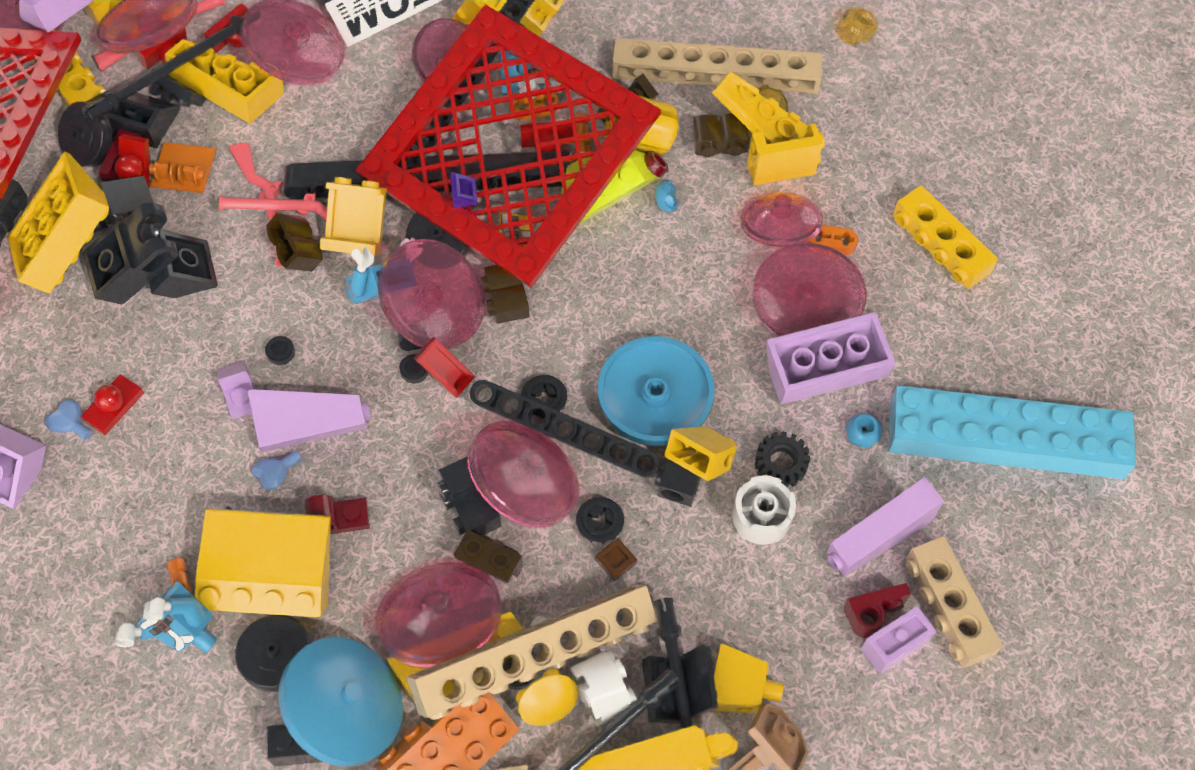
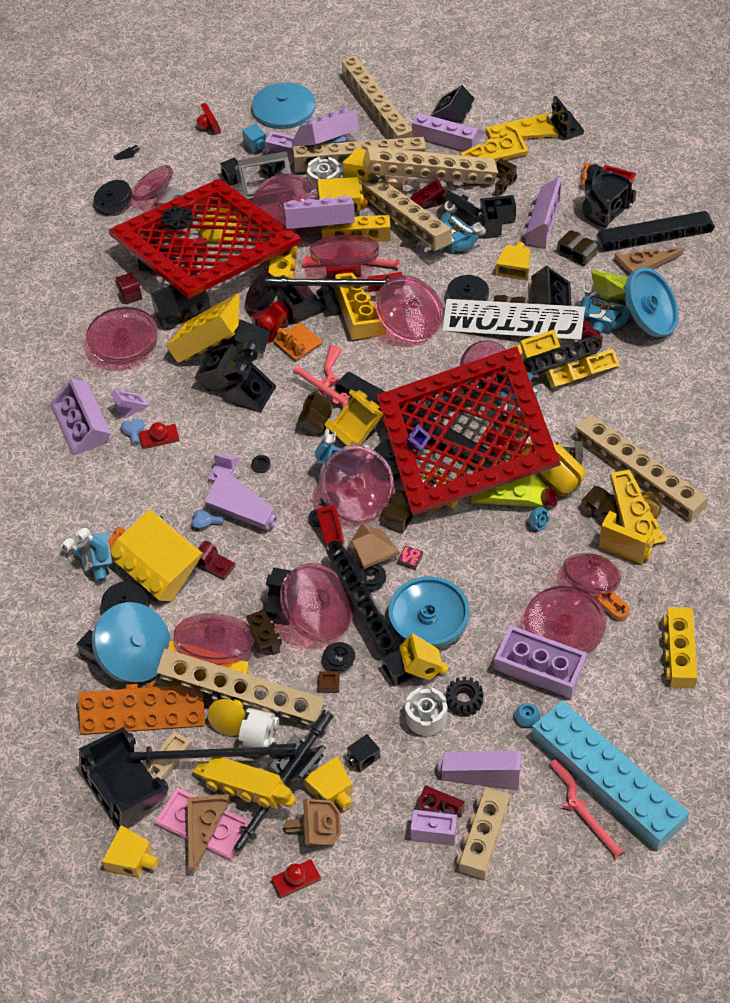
camera: 45 degrees right, 10 degrees down
(30, 389) = (128, 402): none -> lavender slope
(514, 359) = (371, 546): none -> medium nougat slope
(567, 341) = (410, 557): none -> tile
(739, 615) = (363, 753): none -> black brick
(1009, 490) = (579, 806): none -> coral piece

